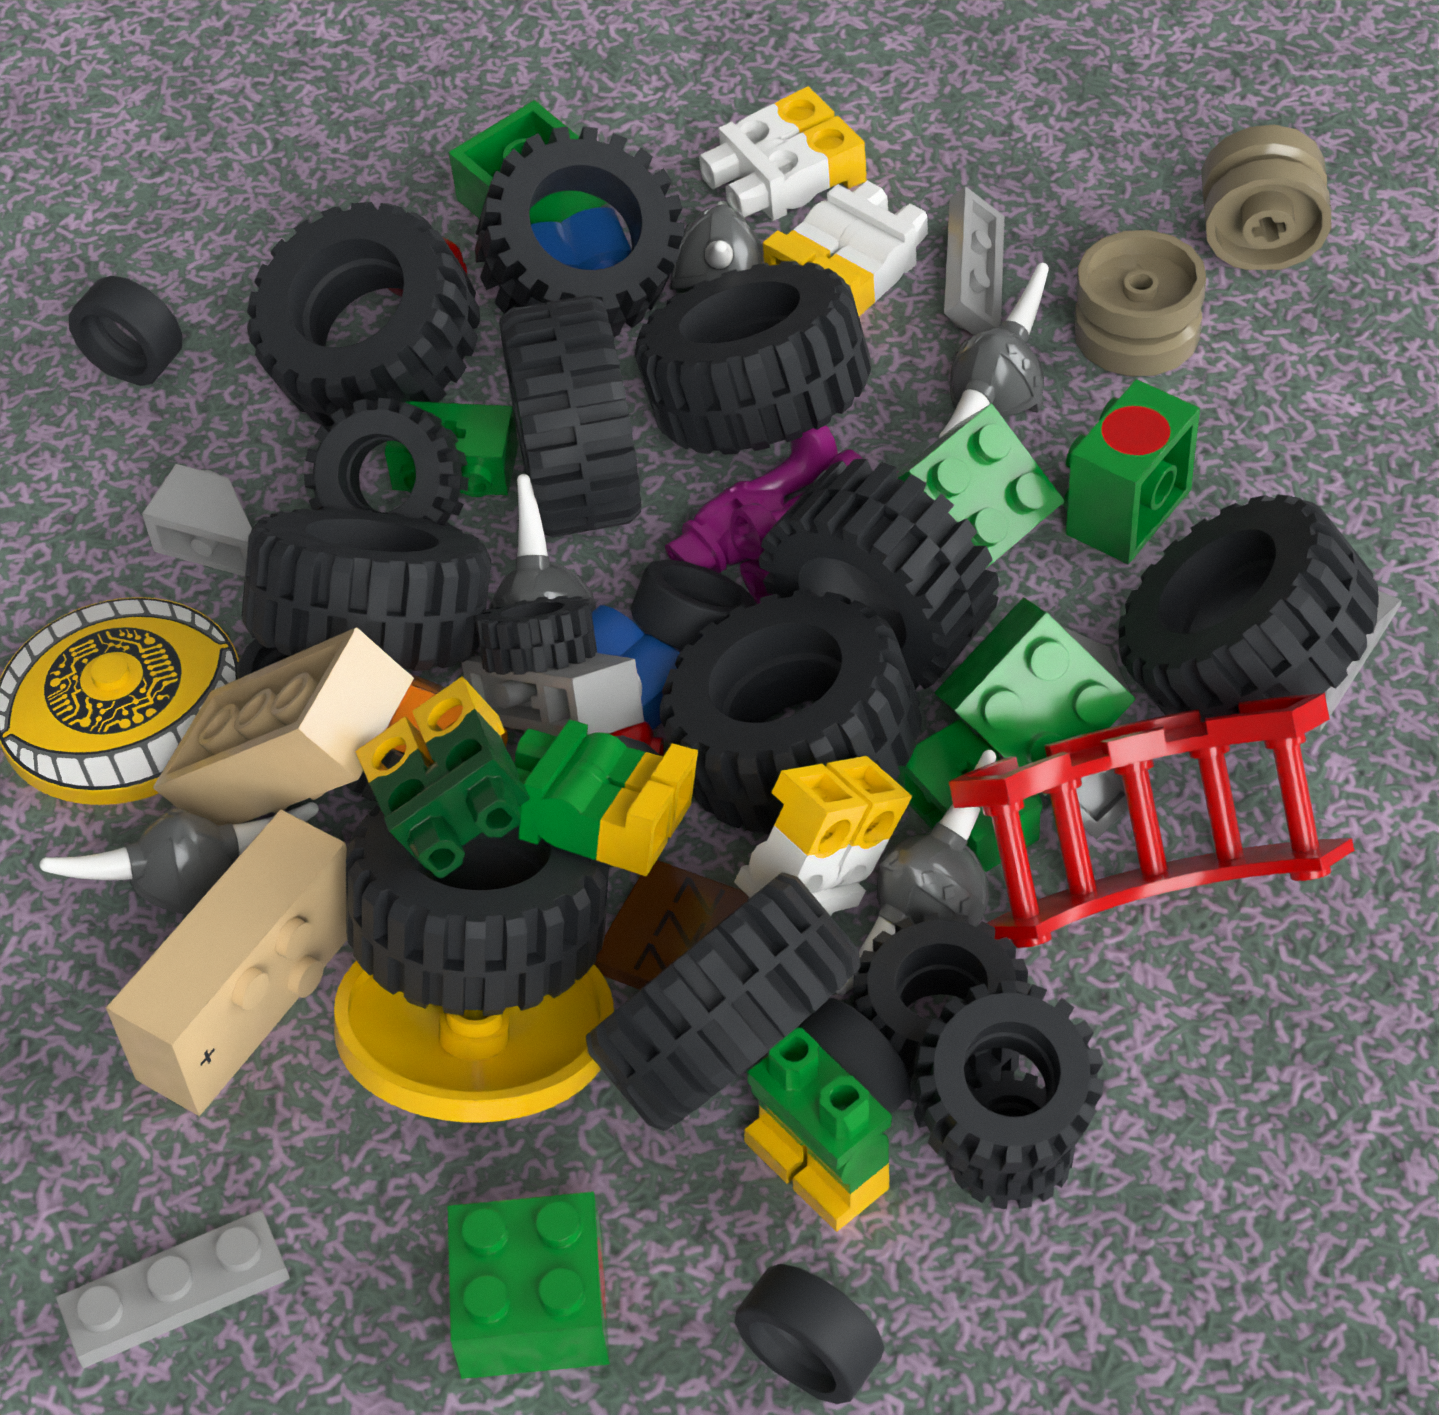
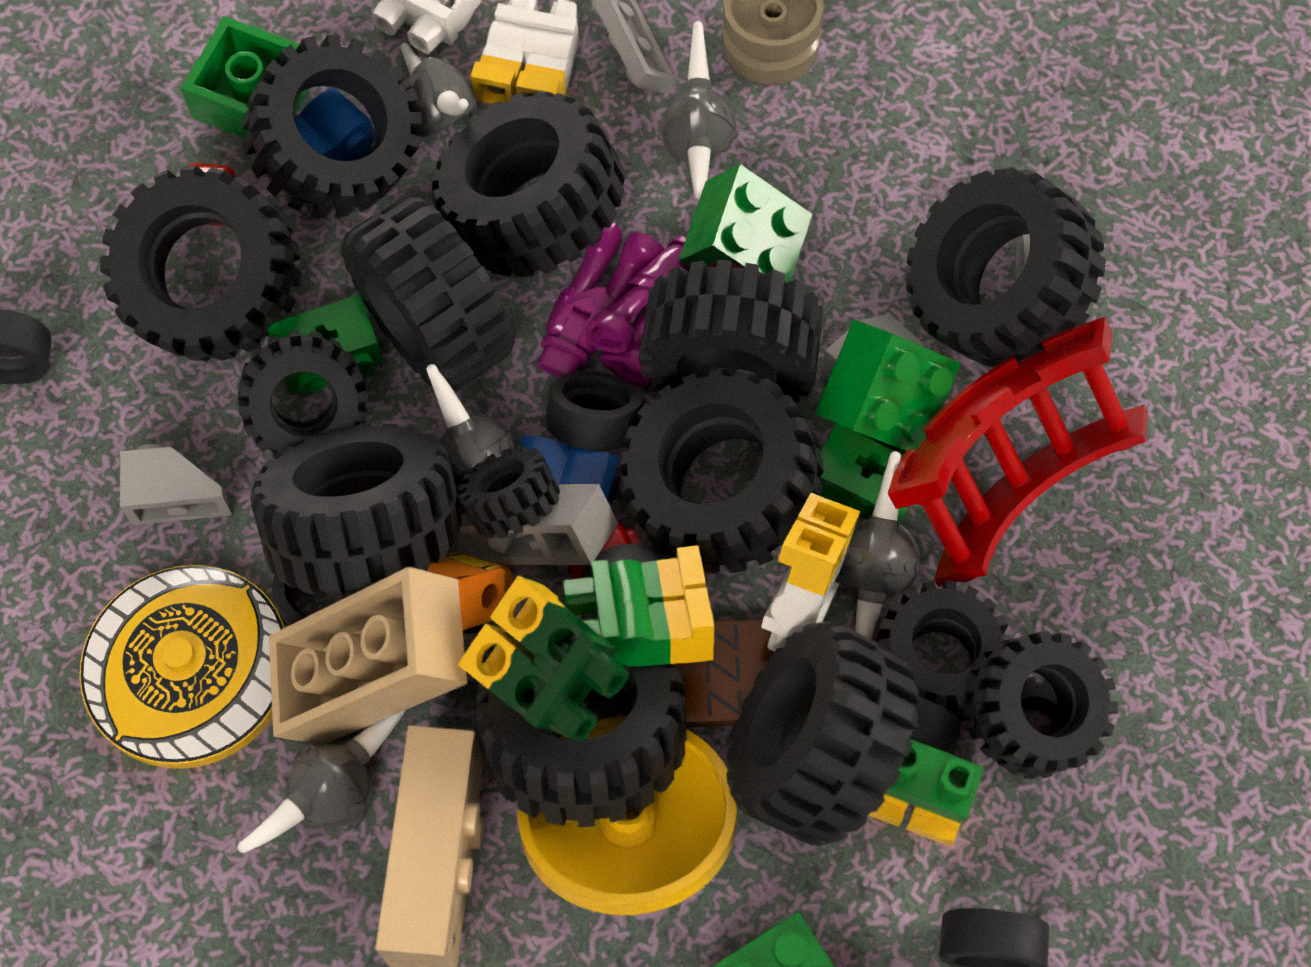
camera: 30 degrees left, 15 degrees up
(1131, 470) = (844, 170): green brick -> none

